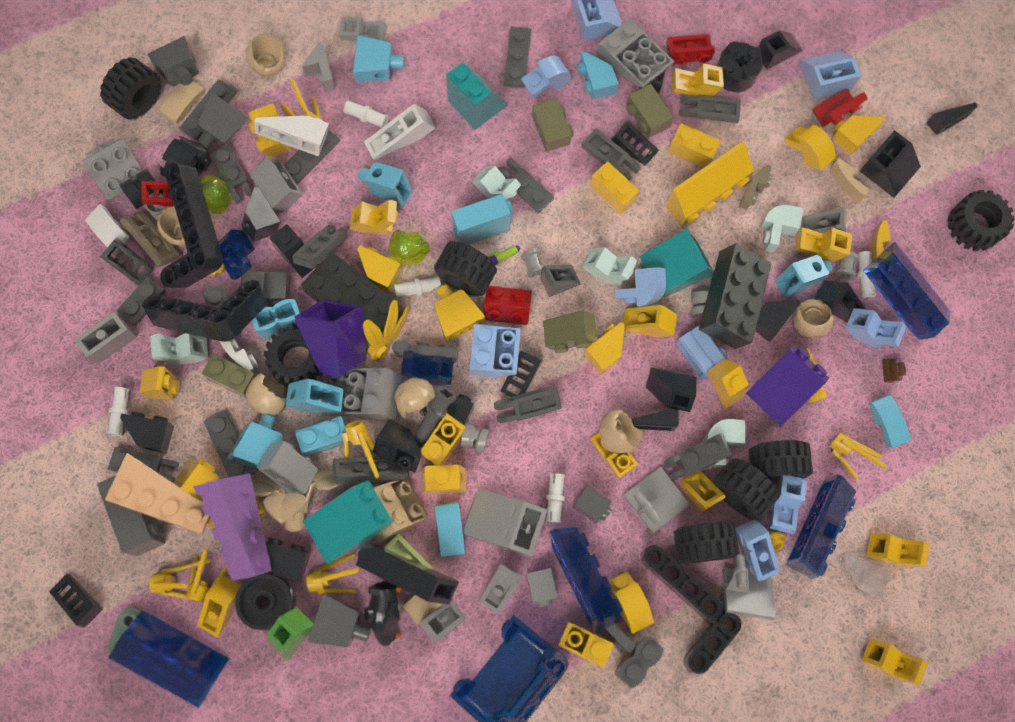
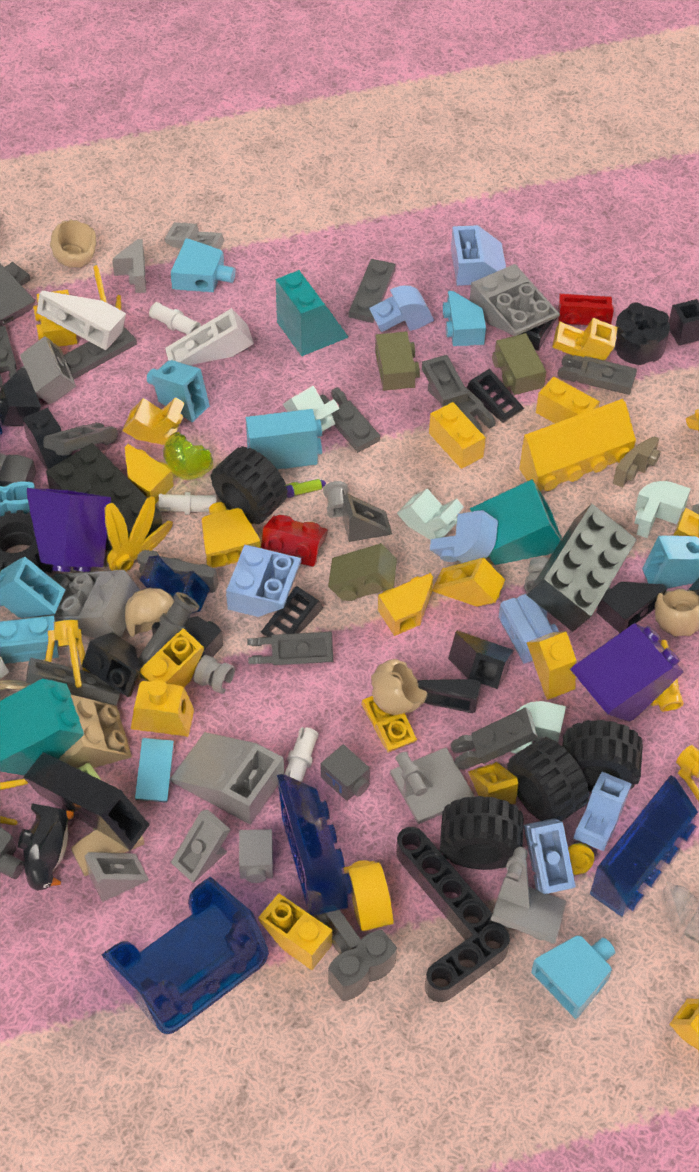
camera: 15 degrees right, 20 degrees down
(596, 140) = (444, 380): none -> dark grey plate
(790, 634) = (575, 972): none -> medium azure torso

